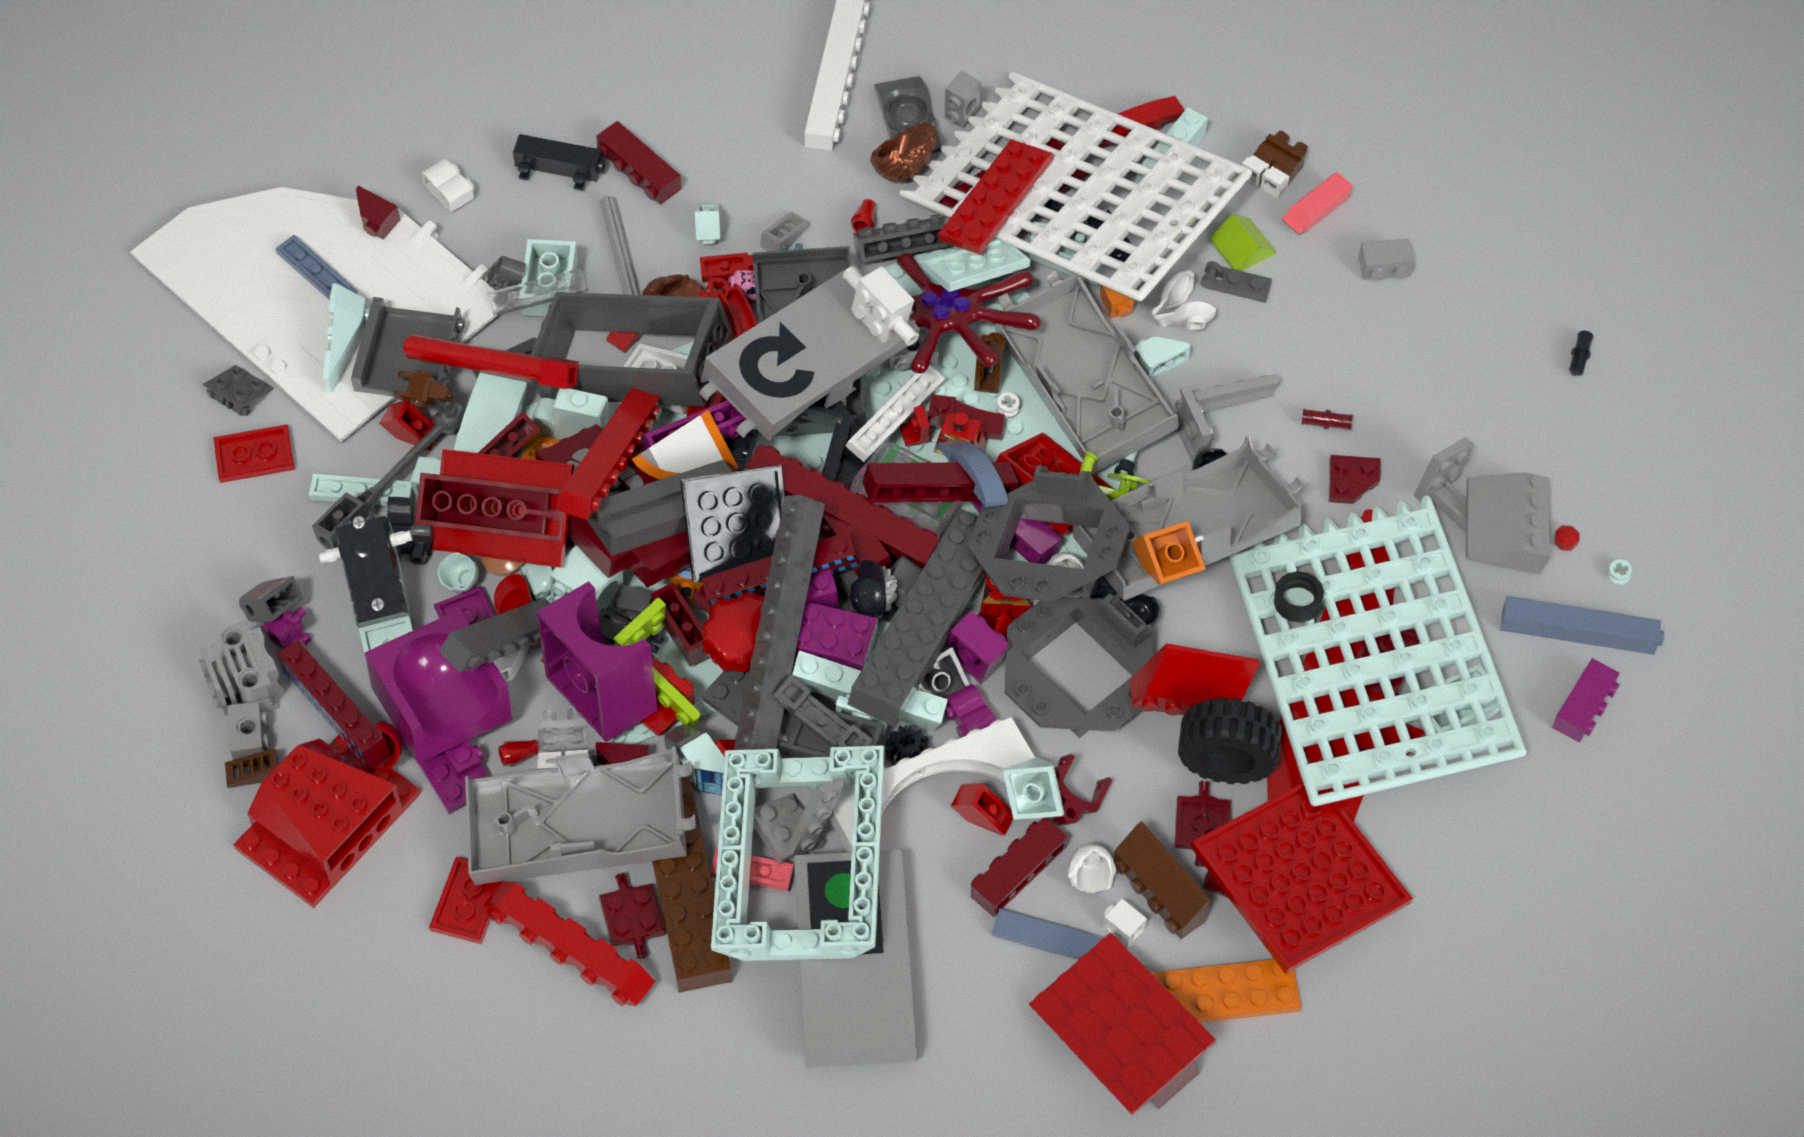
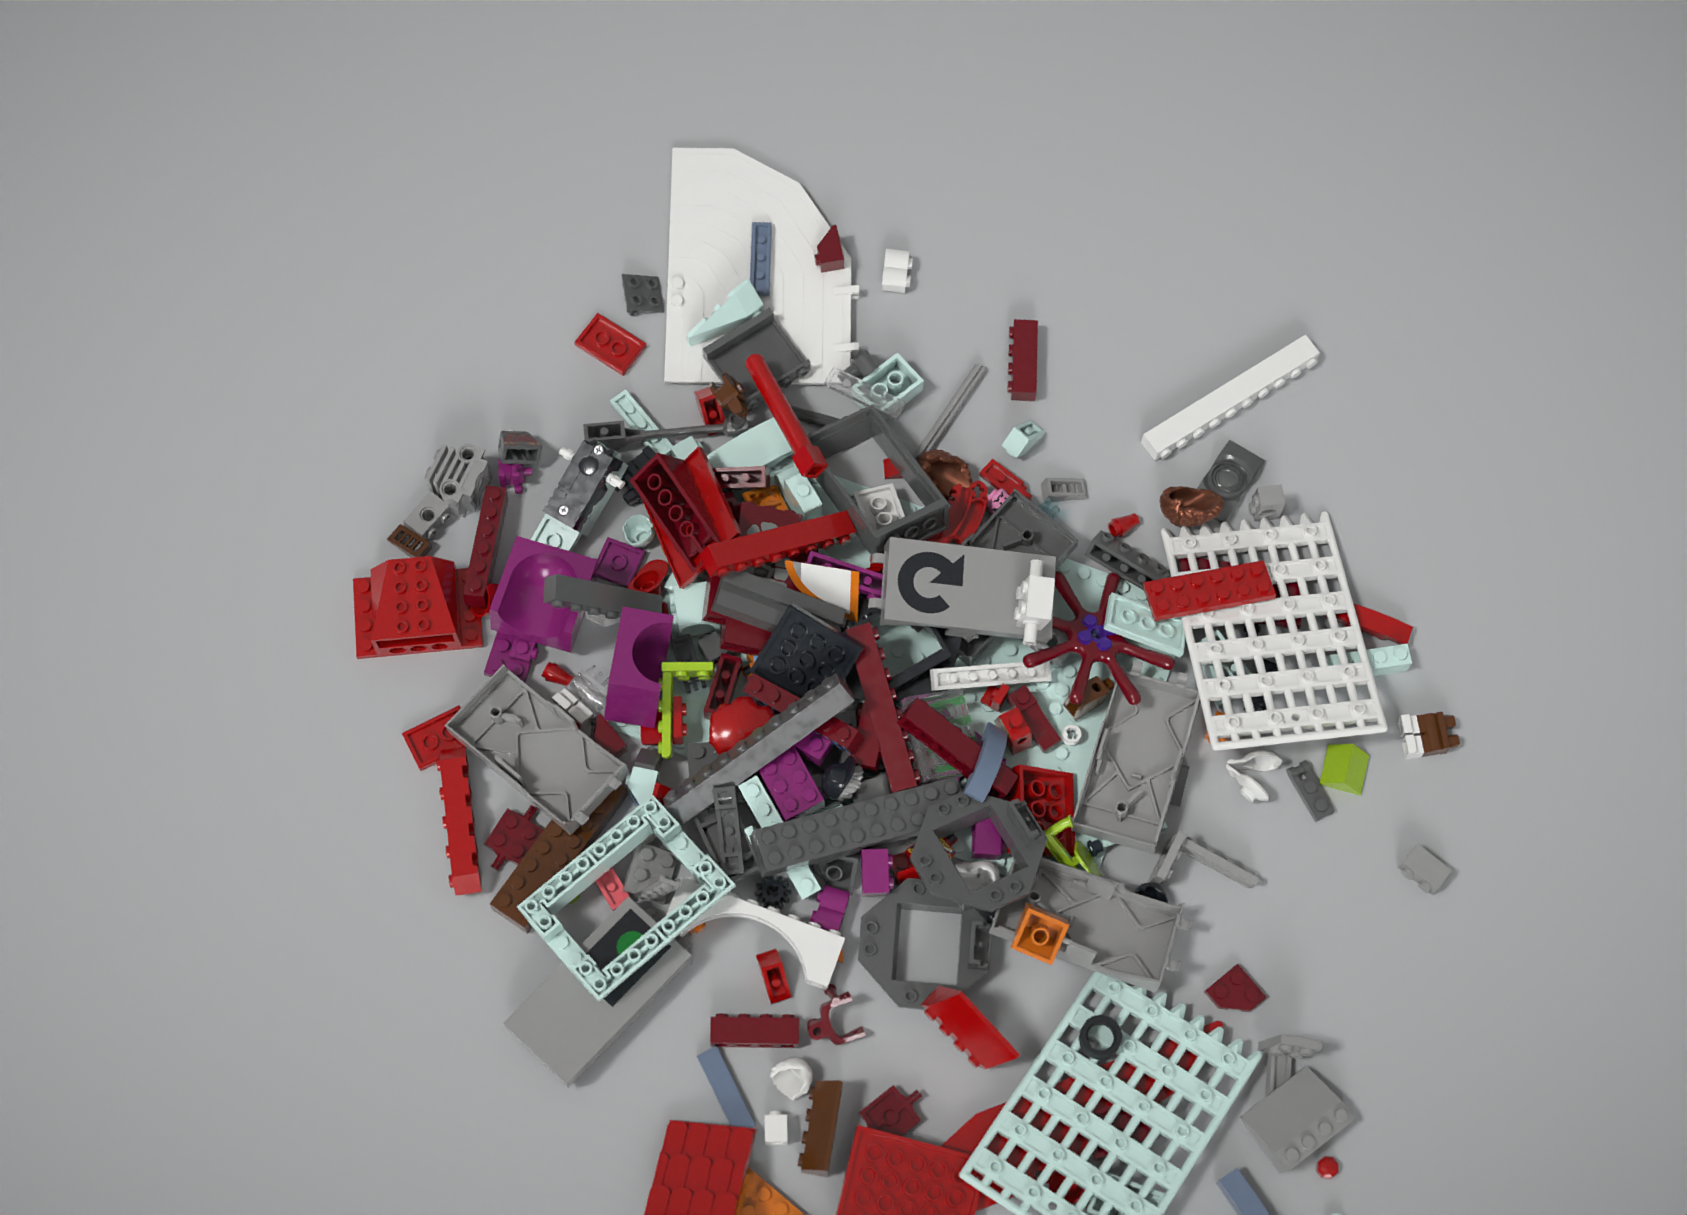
camera: 45 degrees right, 10 degrees up
(558, 158) = (978, 312): black brick -> none
(1033, 789) = (806, 995): light aqua slope -> none
(1145, 608) = (1001, 950): black hair -> none
(1160, 355) = (1202, 793): light aqua slope -> none
(1229, 741) = (951, 1086): black tyre -> none
(1318, 203) = (1422, 788): coral piece -> none
(1327, 419) = (1262, 938): dark red pin -> none
(1581, 352) = (1482, 1056): black axle -> none

